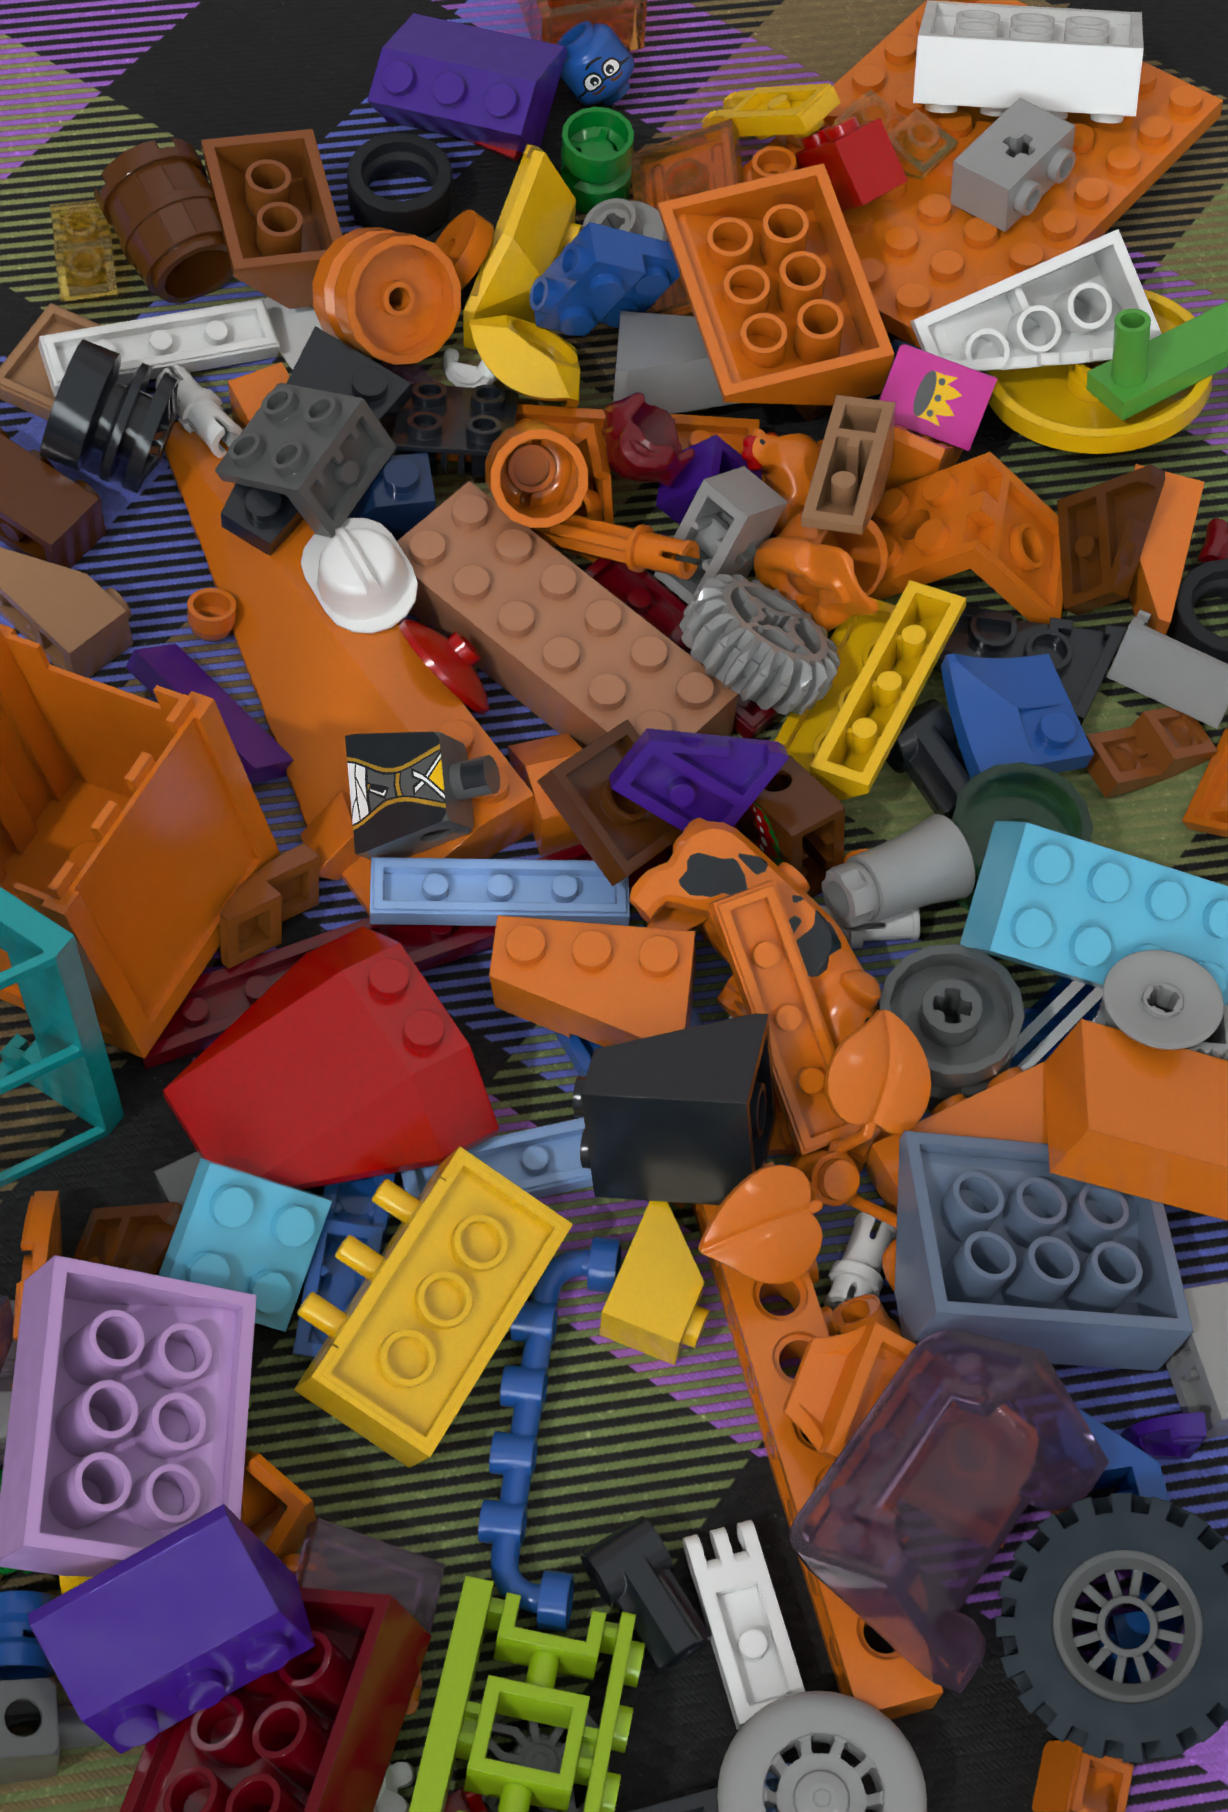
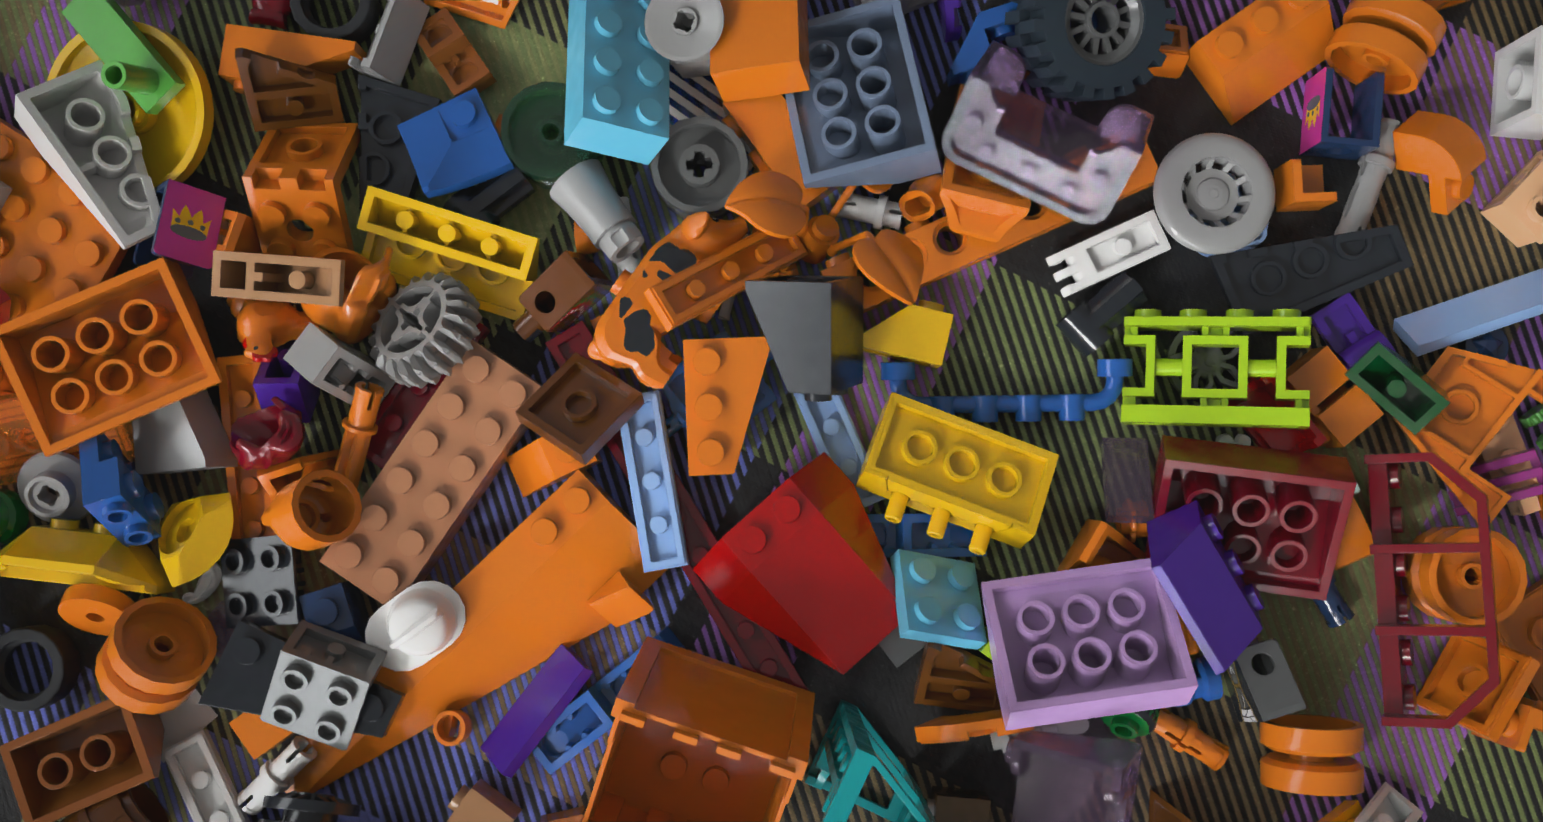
camera: 95 degrees left, 25 degrees up
(271, 895) = (696, 642): dark orange slope -> none
(413, 791) = (594, 552): torso -> none
(449, 661) = (477, 550): red dish -> none
(696, 774) = (559, 354): dark purple wing -> none

